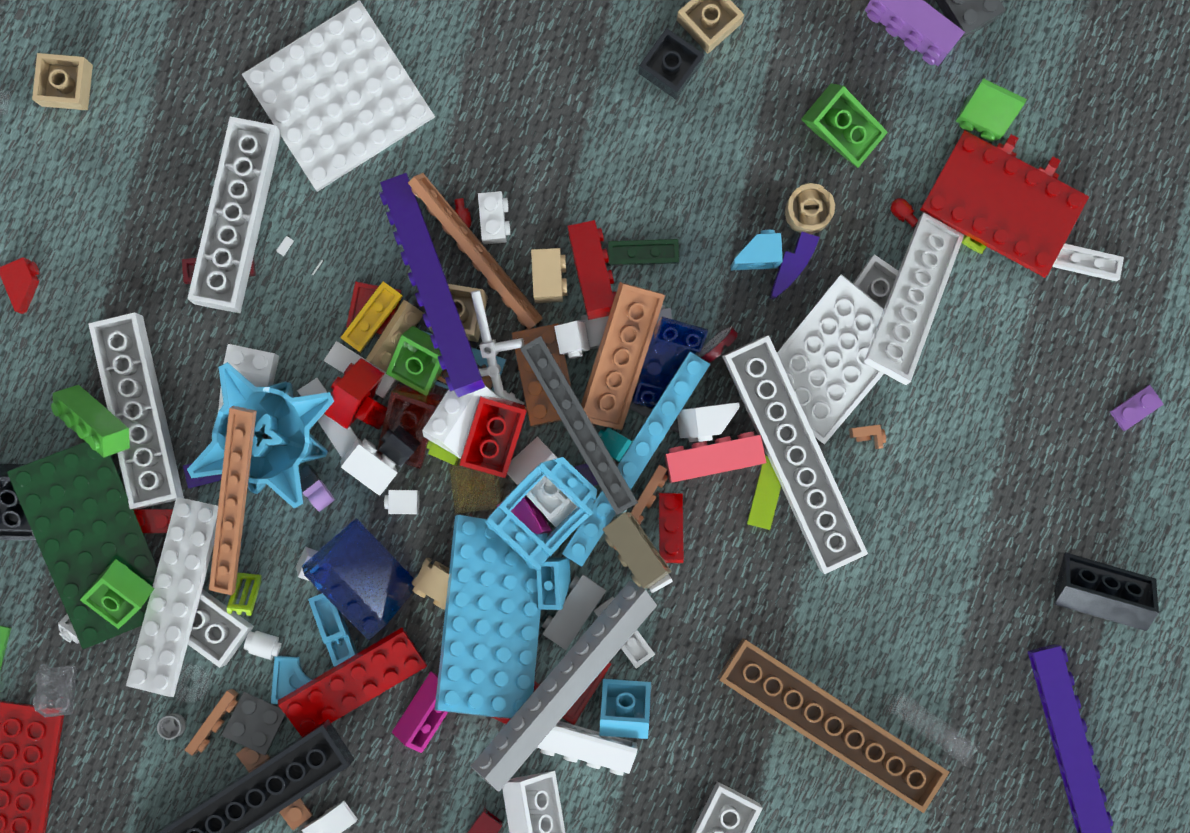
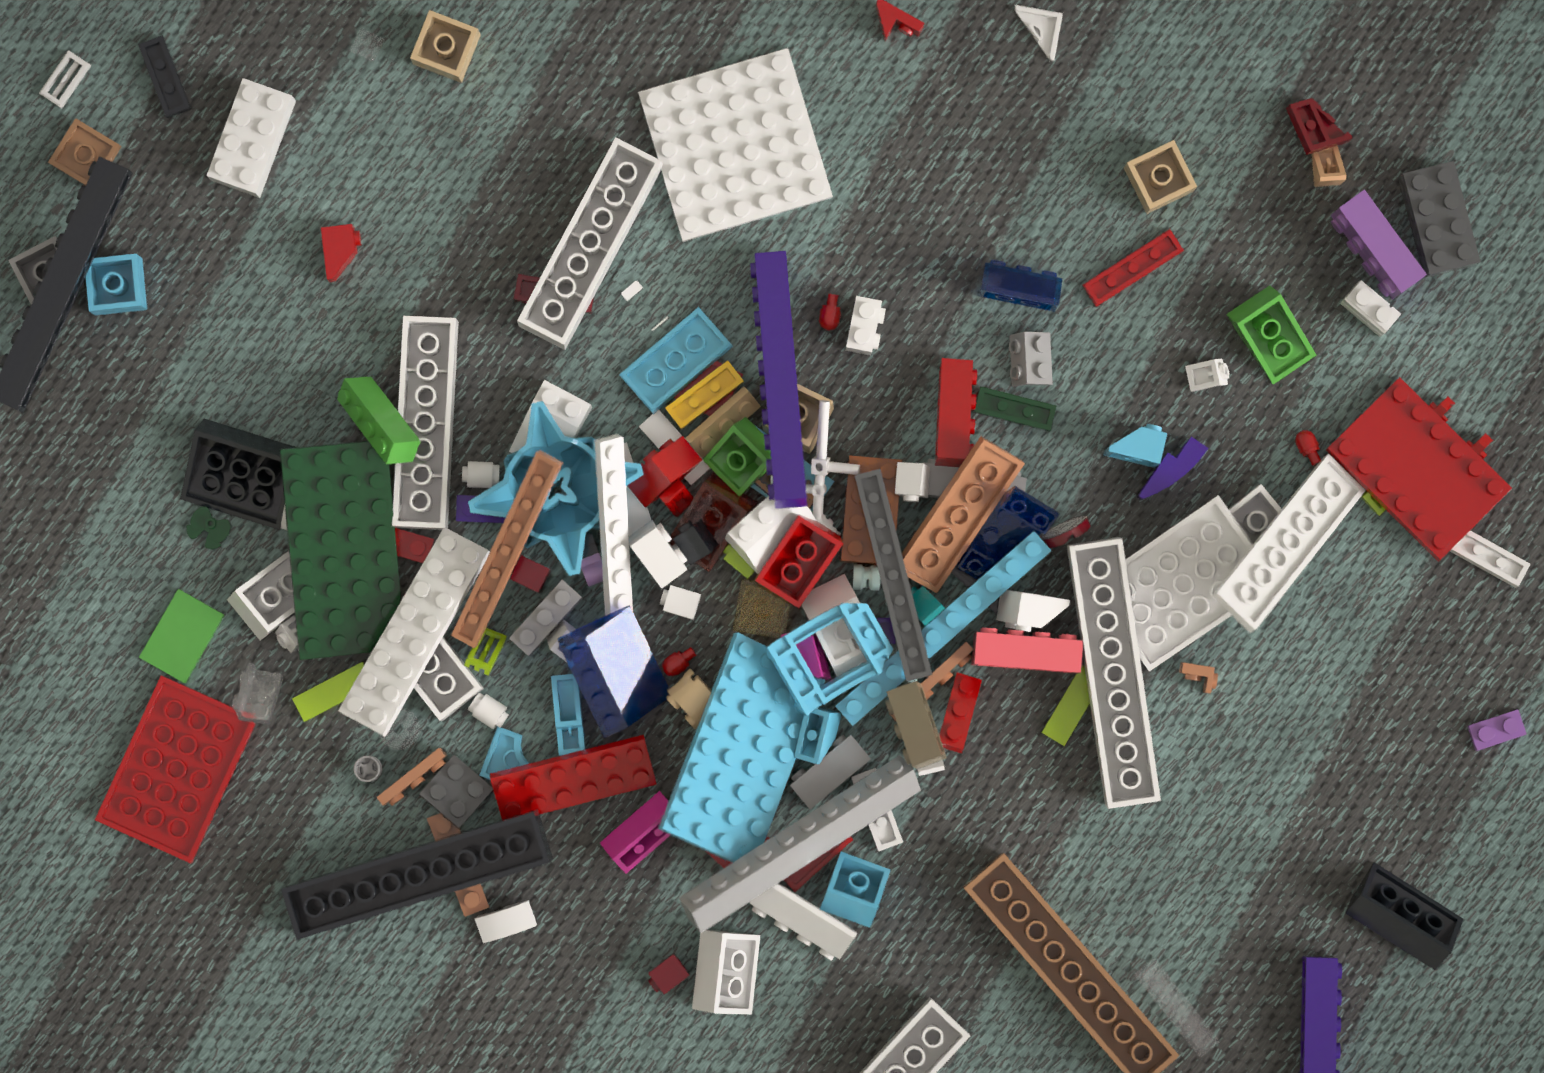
camera: 15 degrees right, 0 degrees up
(38, 605) = (266, 598): none -> white slope
(115, 674) = (327, 693): none -> lime tile
(117, 594) = (355, 612): bright green slope -> none
(196, 441) = (480, 474): none -> white brick
(264, 515) = (530, 574): none -> dark red brick
(289, 550) = (545, 618): none -> light grey brick
(320, 450) = (613, 523): none -> white plate
(339, 294) = (675, 360): none -> medium azure tile
(415, 554) = (677, 662): none -> red cylinder
(469, 244) = (832, 349): nougat plate -> none
(547, 275) = (905, 405): tan brick -> none
(556, 434) = (866, 577): none -> light aqua wheel
(617, 145) = (1020, 286): none -> clear blue slope
(644, 205) = (1030, 359): none -> light grey bracket
(671, 63) = (1103, 215): black brick -> none
(709, 103) = (1132, 268): none -> red tile
(799, 174) = (1207, 374): none -> white bracket
(809, 208) = (1207, 414): tan brick -> none
(922, 78) = (1370, 308): none -> white brick
(989, 110) = (1429, 366): bright green slope -> none

